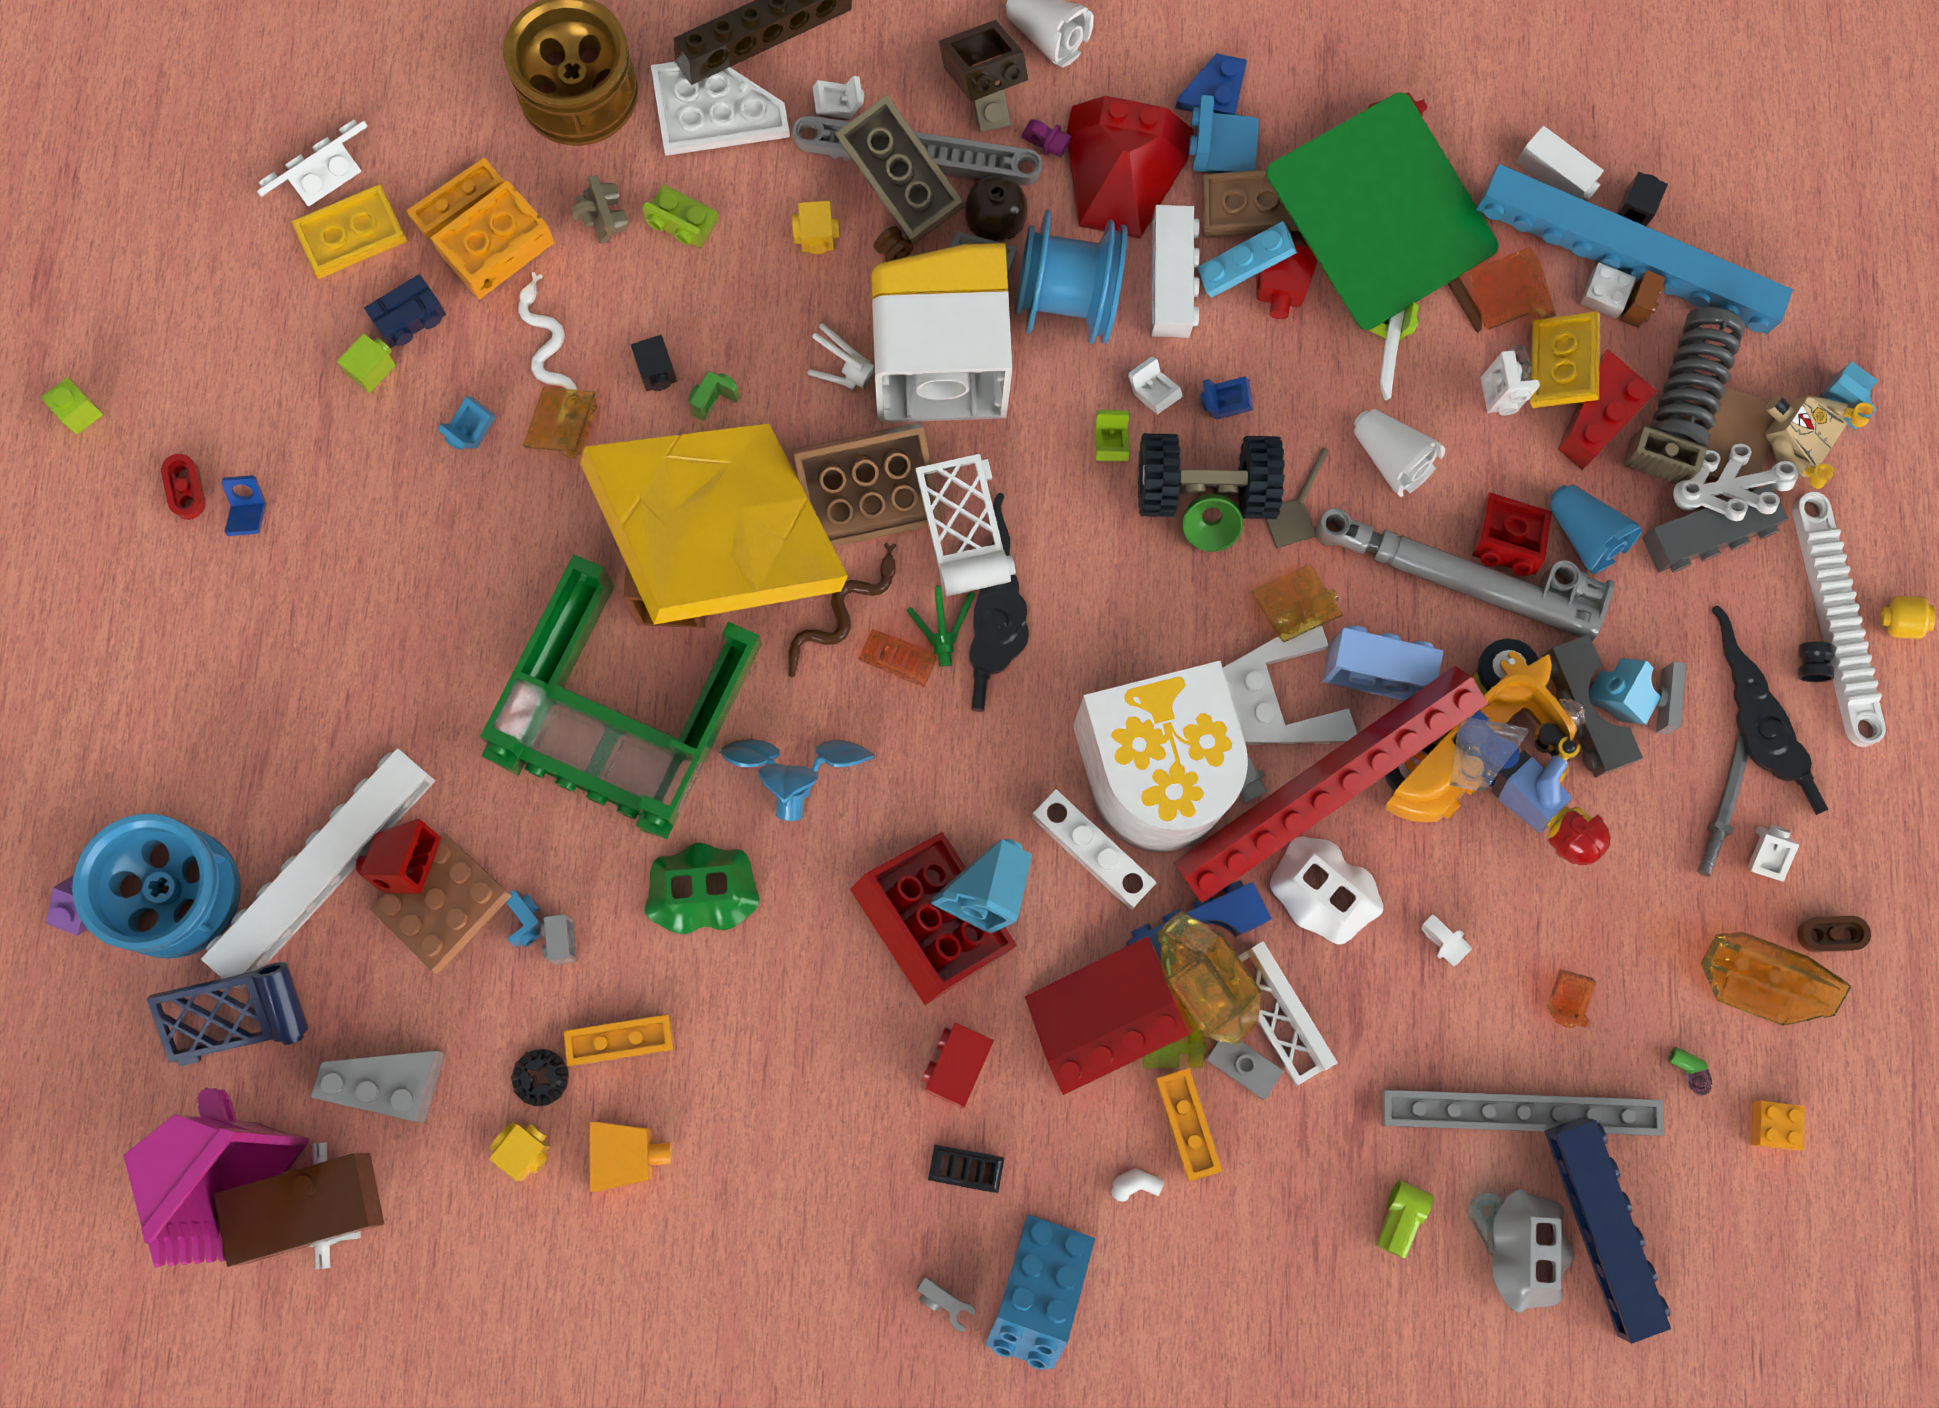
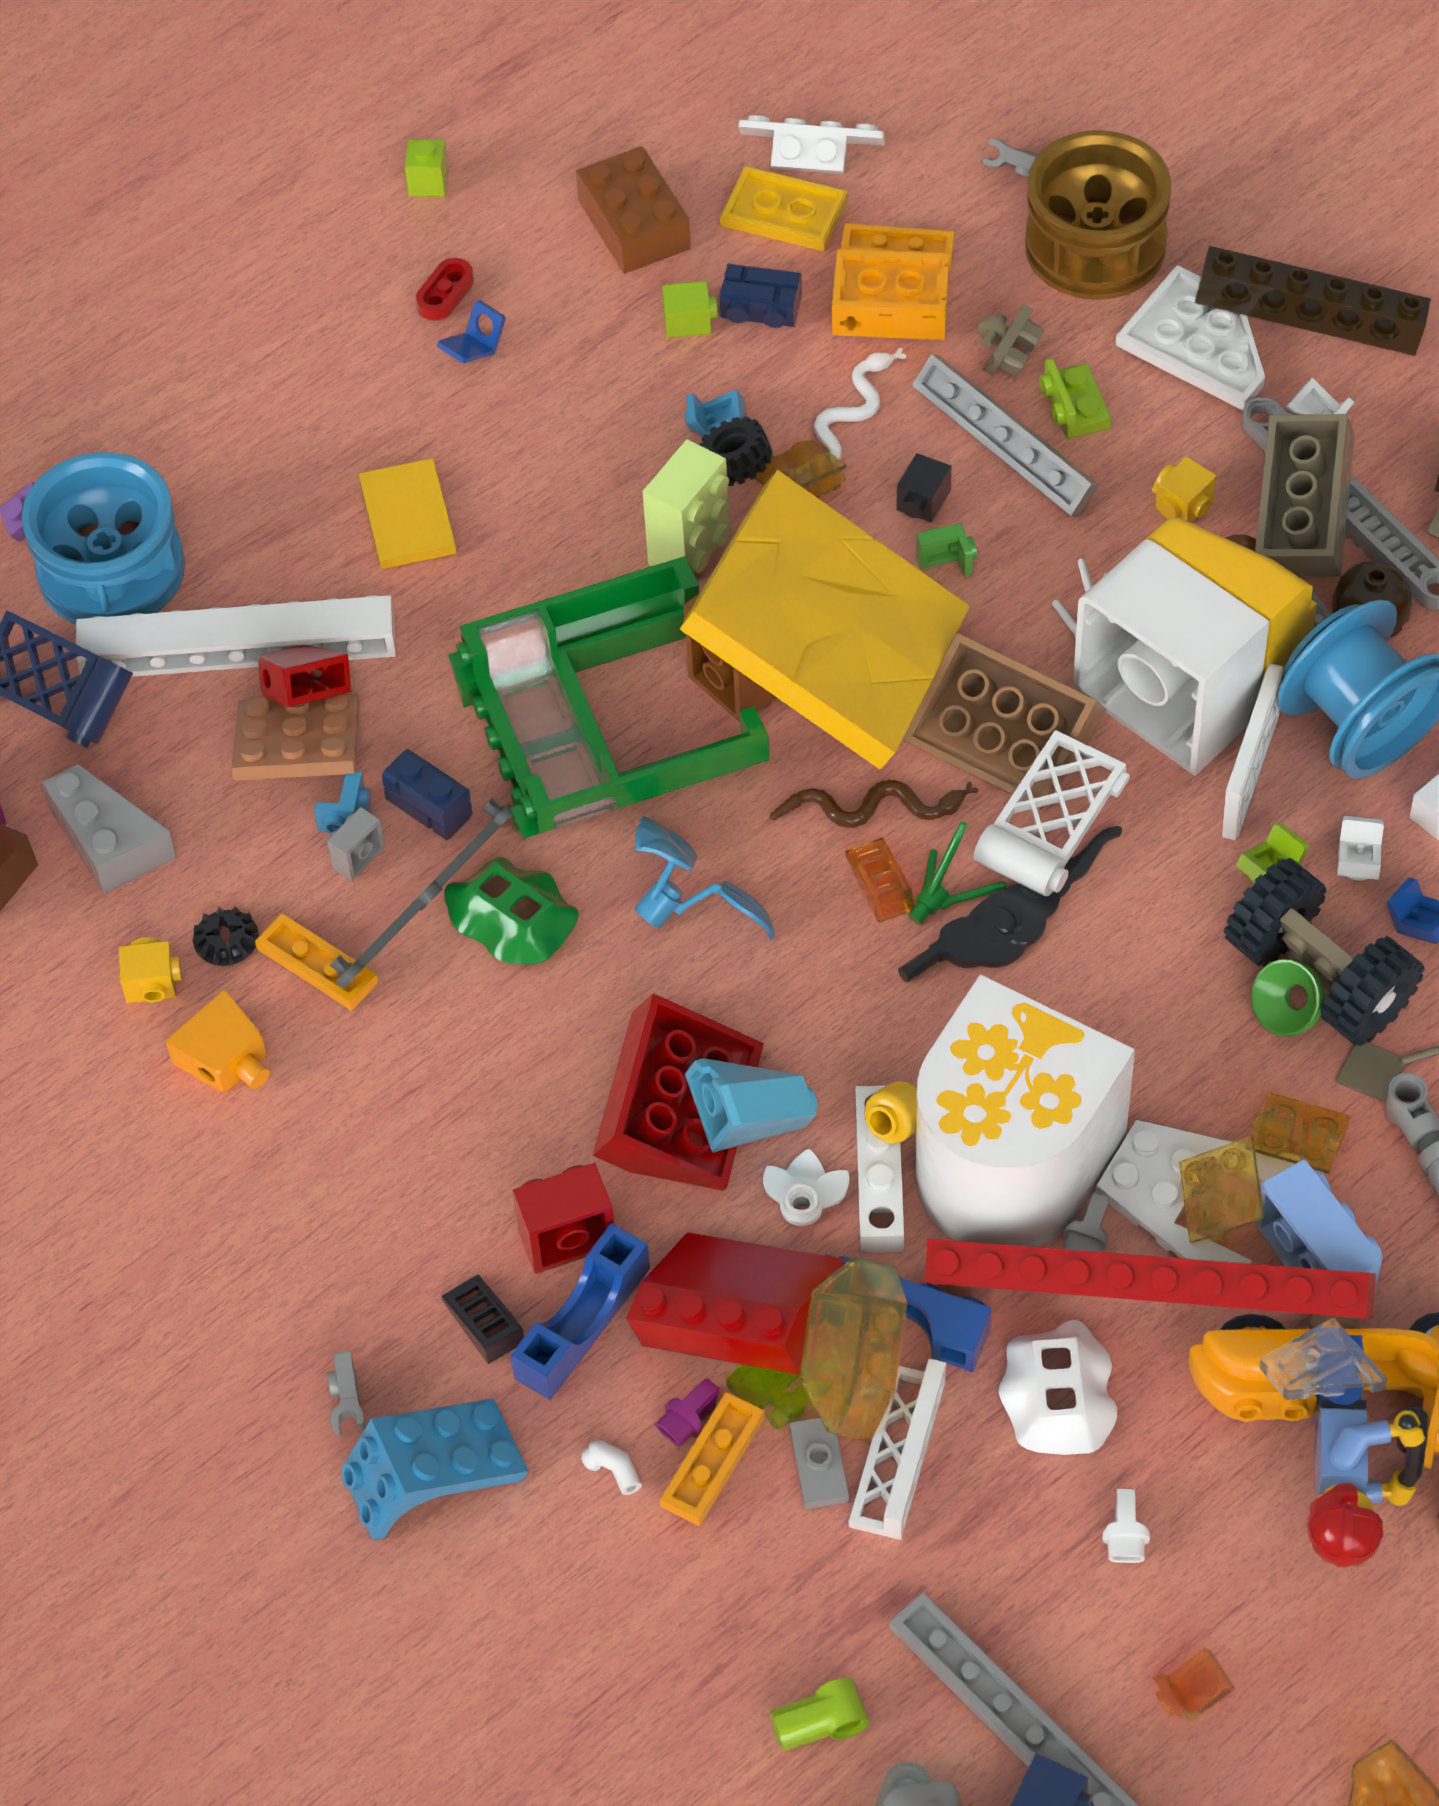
camera: 55 degrees right, 20 degrees down
(251, 318) = (633, 209): none -> dark orange brick
(335, 673) = (407, 513): none -> yellow tile
(476, 65) = (1016, 156): none -> light grey plate
(494, 437) = (742, 445): none -> black tyre
(535, 517) = (687, 507): none -> yellowish green brick
(567, 862) = (427, 794): none -> dark blue brick
(644, 935) = (348, 972): none -> dark grey piece
(664, 281) = (1005, 435): none -> light grey plate
(1027, 1114) = (558, 1345): none -> blue arch
(1040, 379) = (1252, 753): none -> white tile
(1060, 897) = (805, 1184): none -> white plate
(1084, 813) = (892, 1112): none -> yellow head
(1148, 1119) = (685, 1416): none -> magenta piece
(1304, 685) = (1221, 1191): none -> clear yellow hinge

